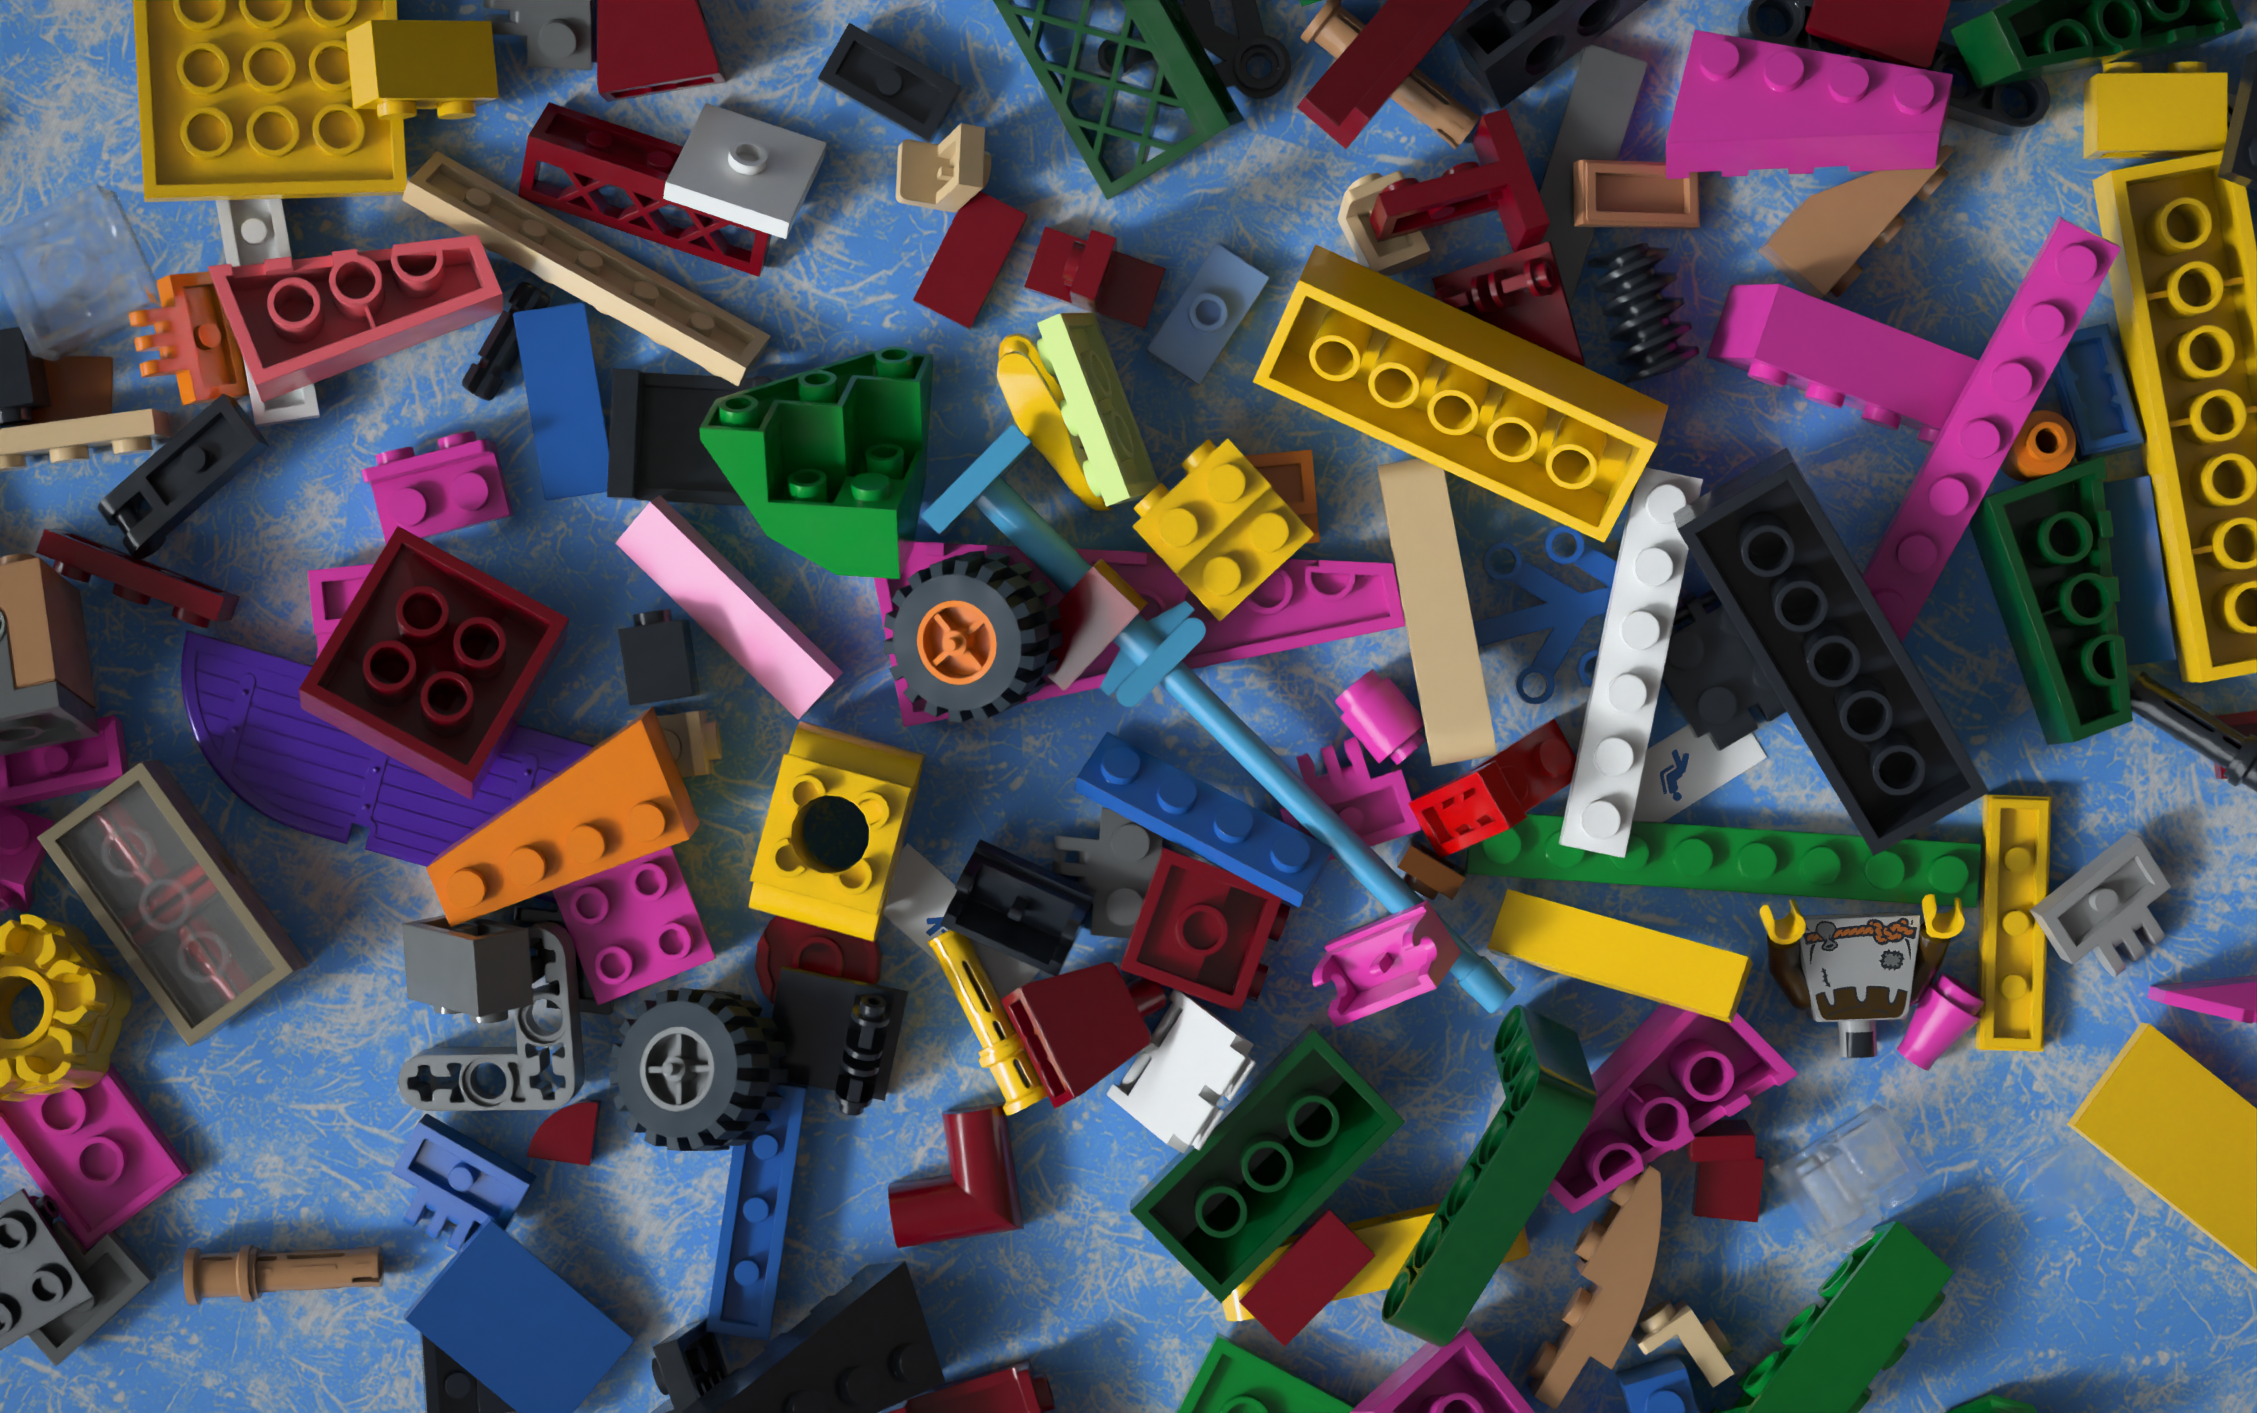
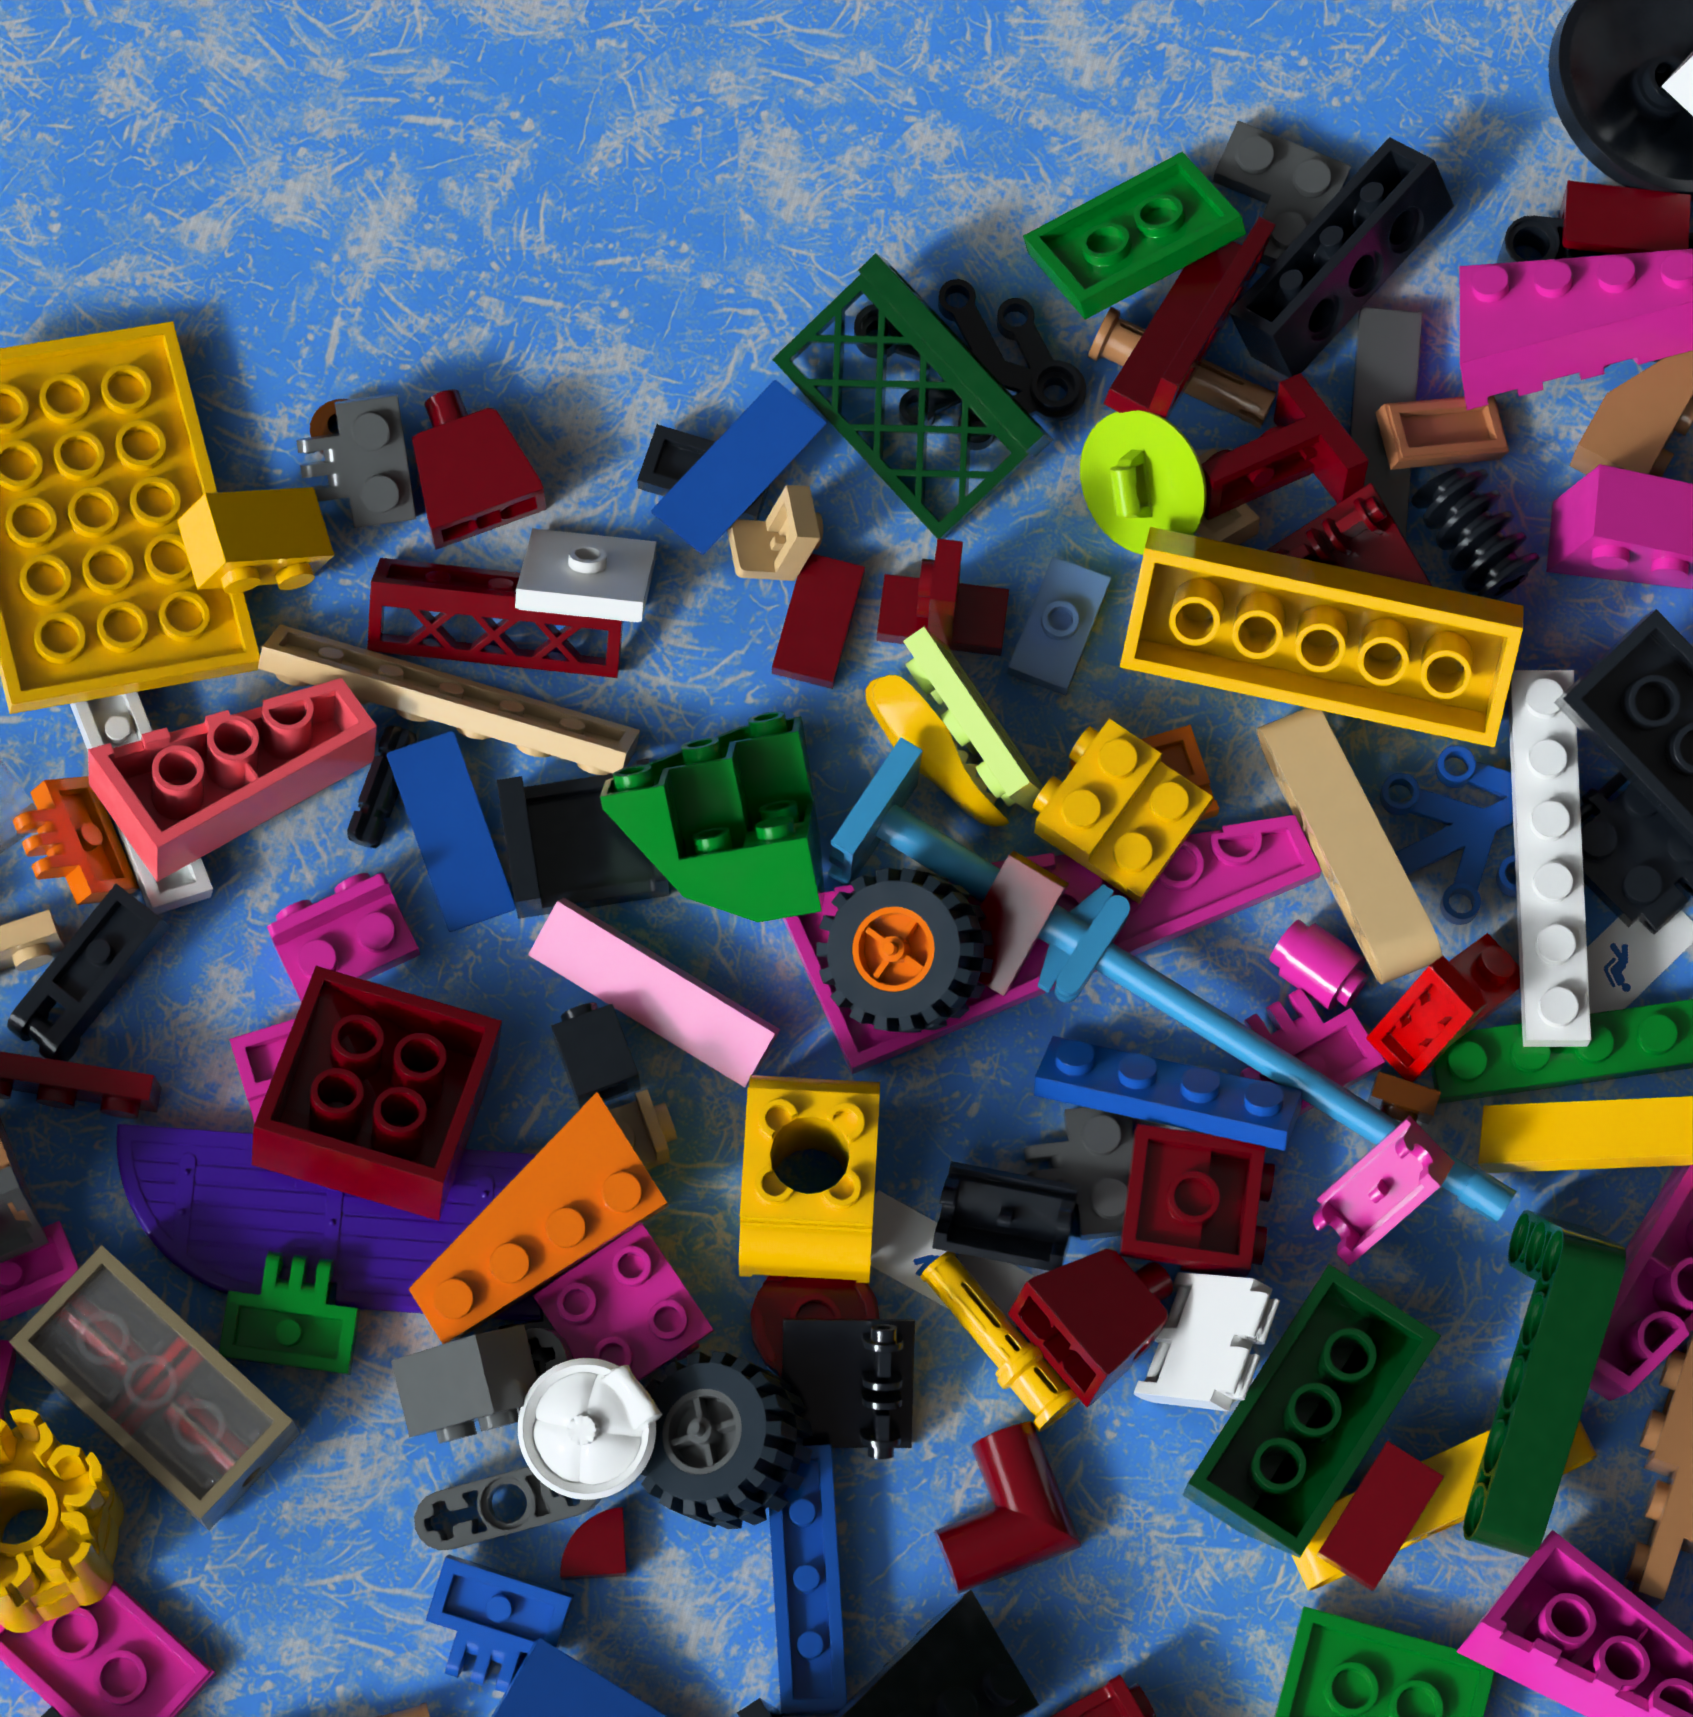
camera: 10 degrees left, 15 degrees down
(318, 859) = (291, 1321): none -> green hinge
(568, 1044) = (587, 1428): none -> white piece
(922, 86) = (738, 467): none -> blue sticker
(1320, 189) = (1141, 476): none -> lime shield

